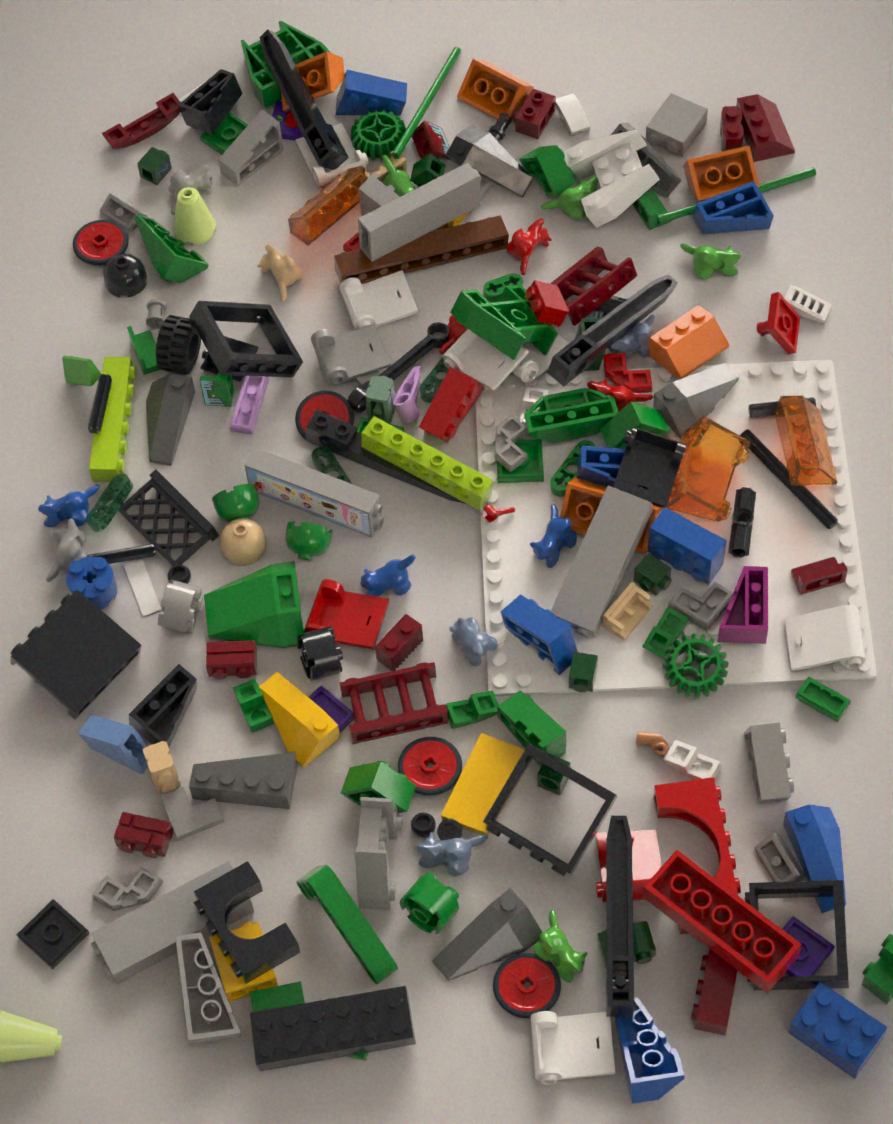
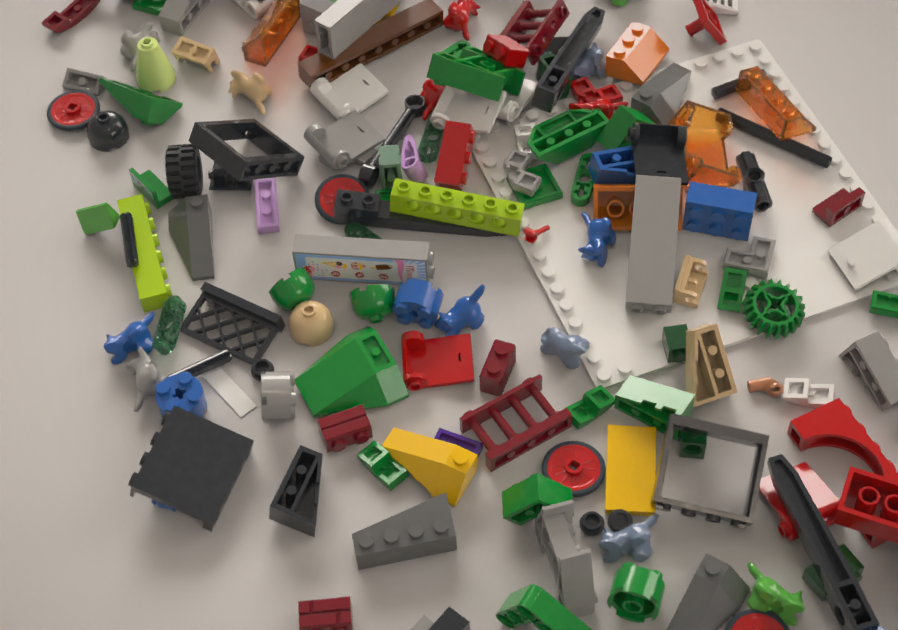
camera: 20 degrees left, 5 degrees down
(115, 741) = (264, 538): medium blue slope -> none
(154, 165) = (100, 36): dark green brick -> none
(156, 313) = (150, 156): light grey bush -> none
(161, 767) = (320, 547): tan brick -> none
(188, 819) = (364, 589): light grey tile -> none
(217, 390) = (234, 200): green panel -> none
(240, 213) = (195, 52): none -> tan hinge
(319, 654) = (429, 398): black brick -> none
(349, 553) = (417, 303): none -> blue brick
(541, 630) = (626, 318): blue wedge -> none
(596, 706) = (707, 365): none -> tan wedge
(652, 574) = (698, 244): dark green brick -> none
(748, 610) = (797, 247): magenta wedge -> none

